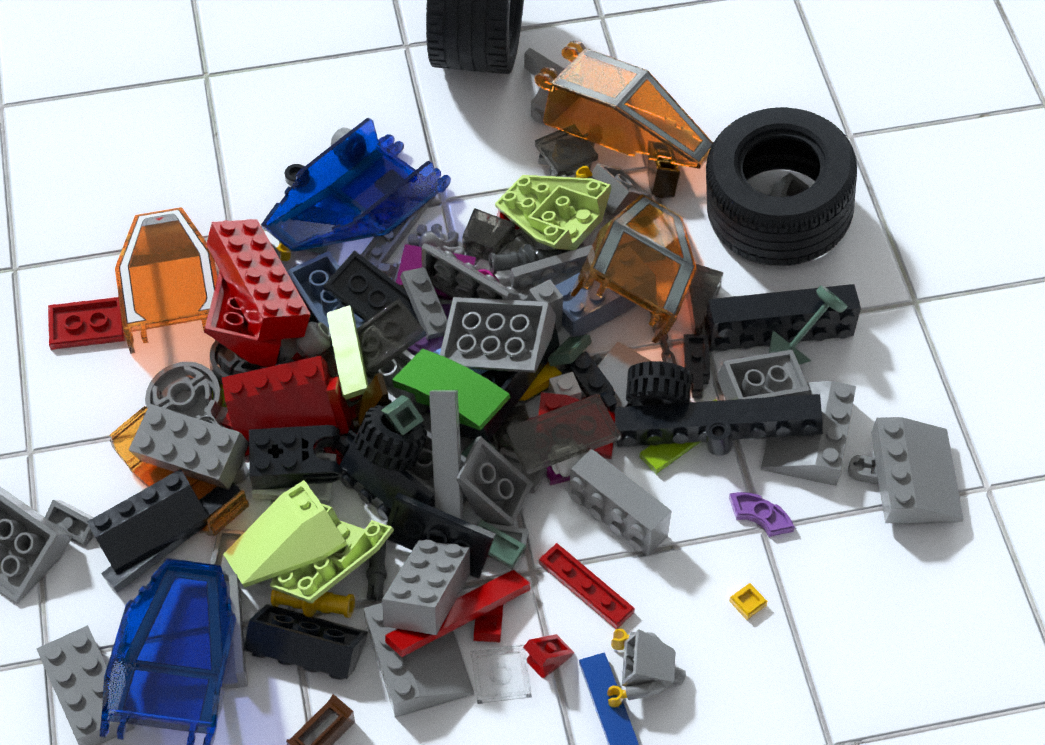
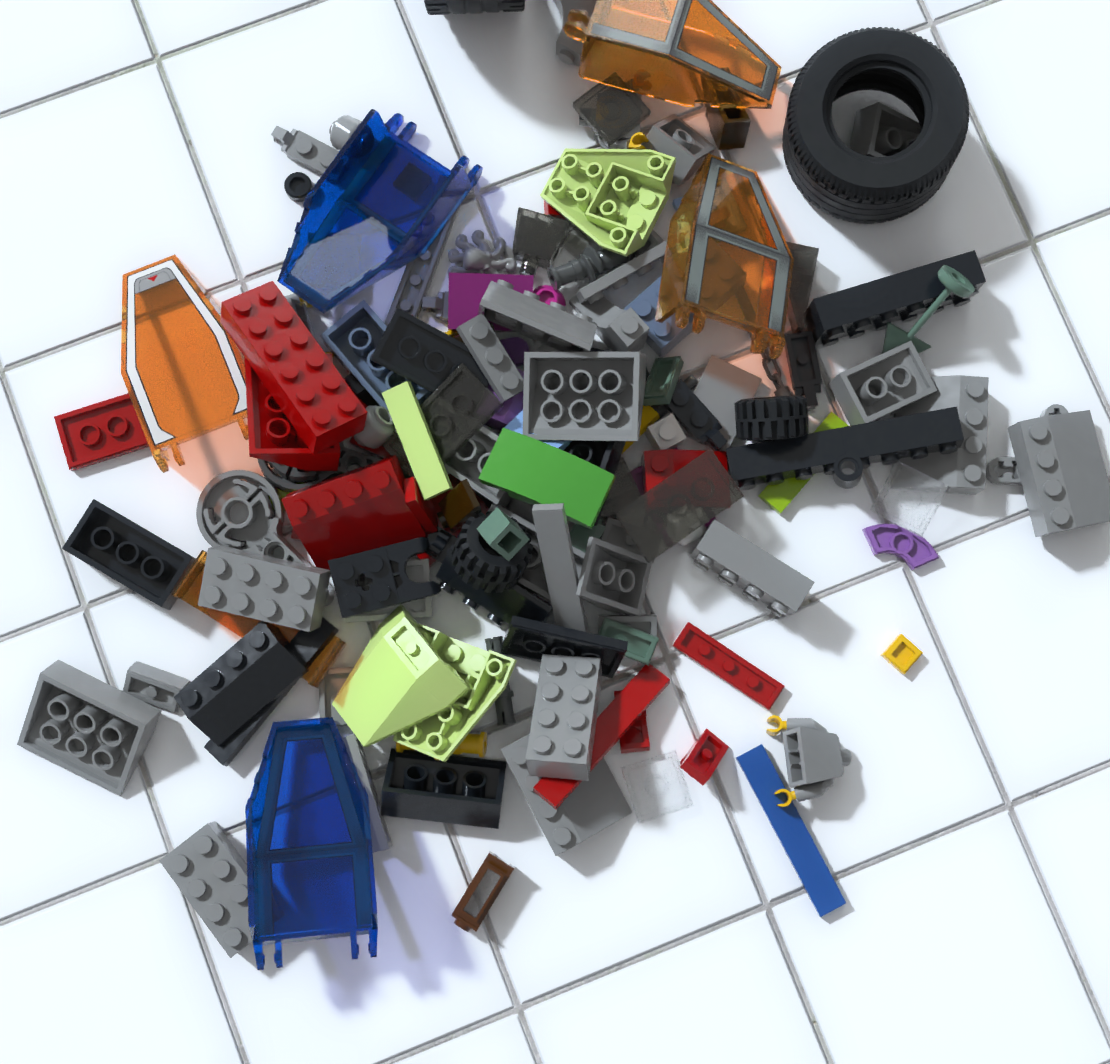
camera: 15 degrees left, 25 degrees up
(79, 409) = (129, 554): none -> black brick
(303, 146) = (304, 149): none -> light grey hinge
(773, 472) = (909, 498): none -> clear tile

